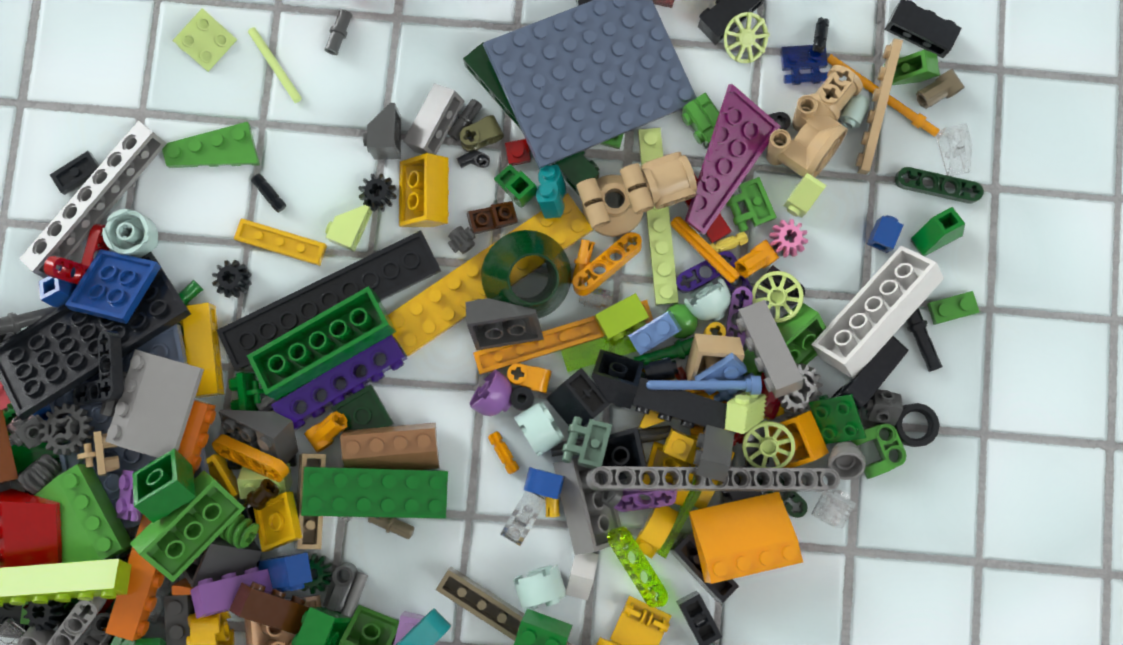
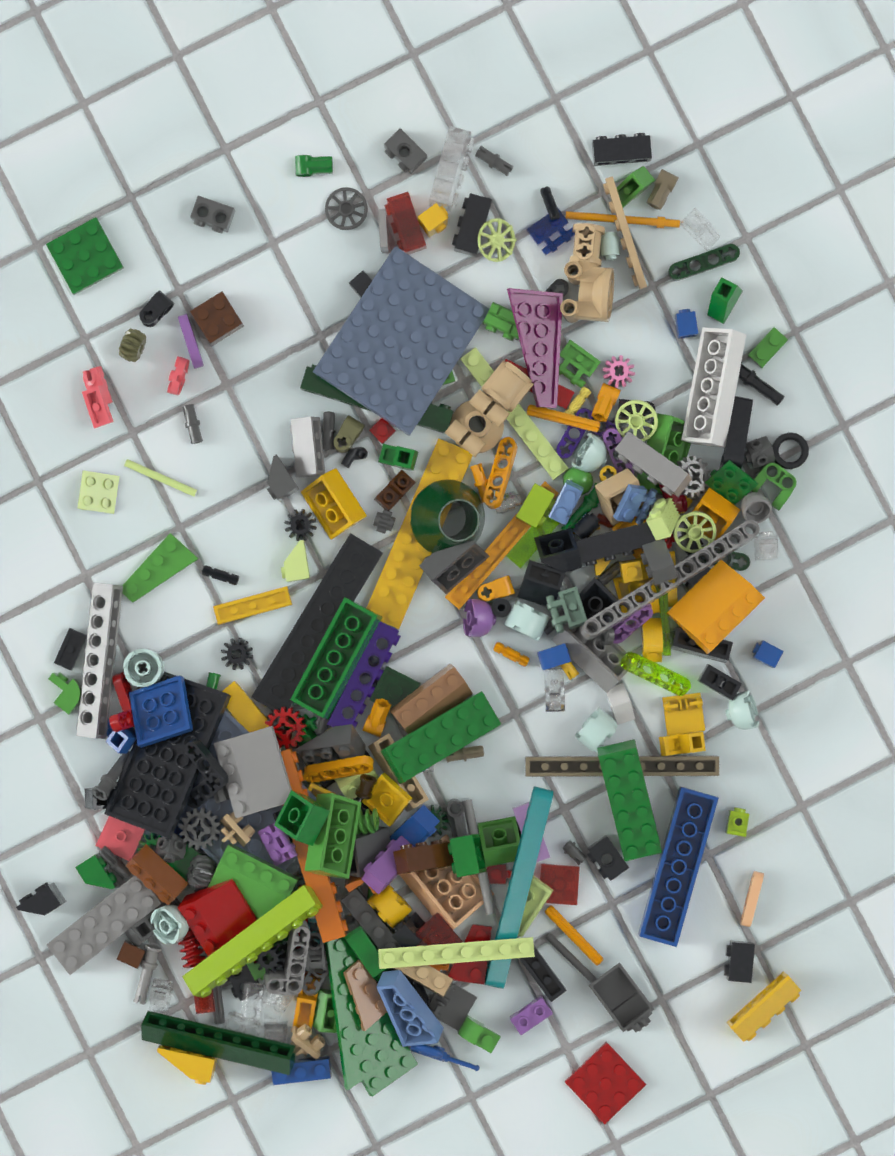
camera: 30 degrees left, 5 degrees up
(46, 209) = (71, 693): none -> bright green brick
(232, 373) = (285, 720): none -> red gear
(551, 191) = (427, 446): teal brick -> none
(750, 385) = (655, 498): medium blue piece -> none
(766, 620) = (767, 653): none -> blue brick
(804, 195) = (611, 335): yellowish green slope -> none

